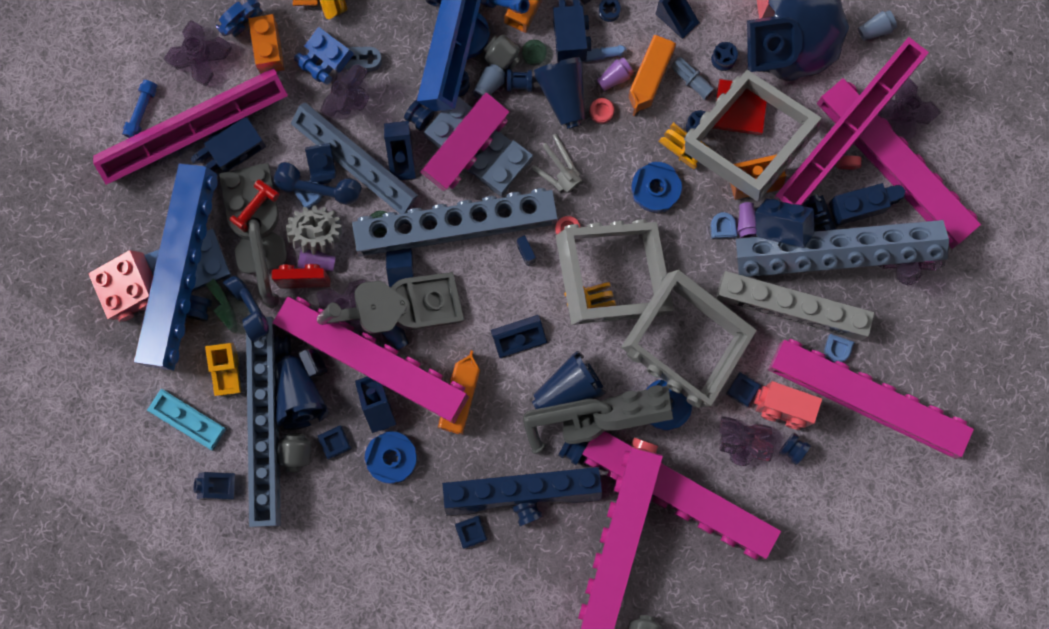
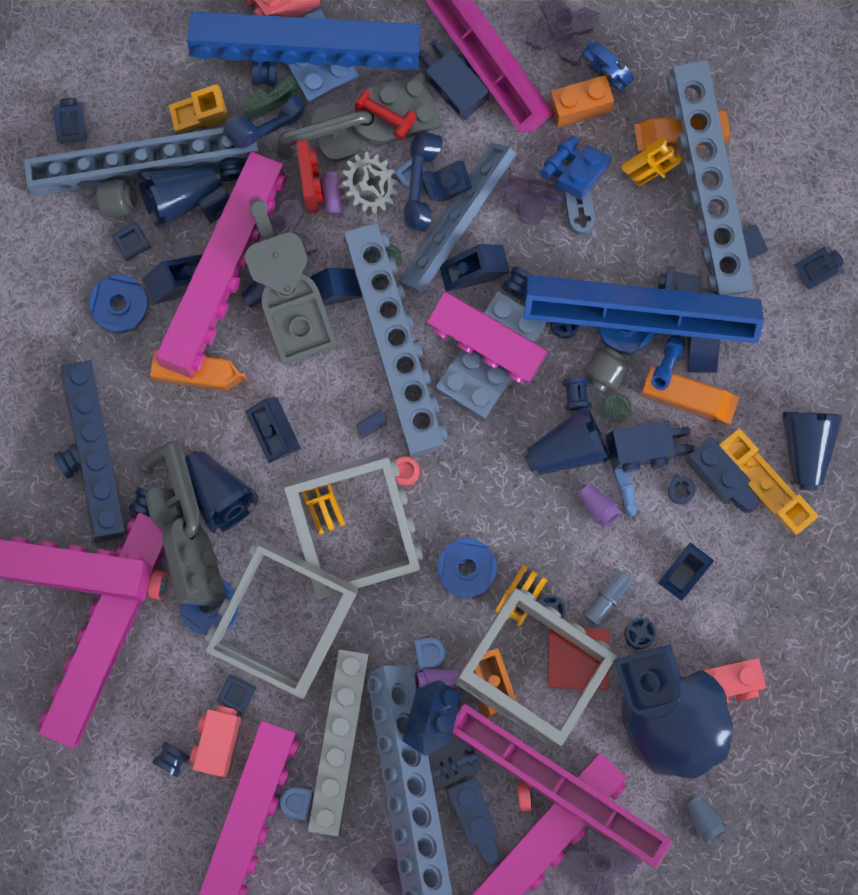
camera: 85 degrees right, 0 degrees up
(186, 419) = (141, 80): medium azure tile -> none
(471, 532) = (44, 402): dark blue tile -> none
(490, 81) = (570, 359): sand blue cone -> none
(568, 177) = (464, 463): light grey plant -> none
(601, 111) = (554, 495): coral tile -> none
(651, 73) = (605, 547): orange piece -> none
(745, 442) = (170, 698): clear purple plant -> none

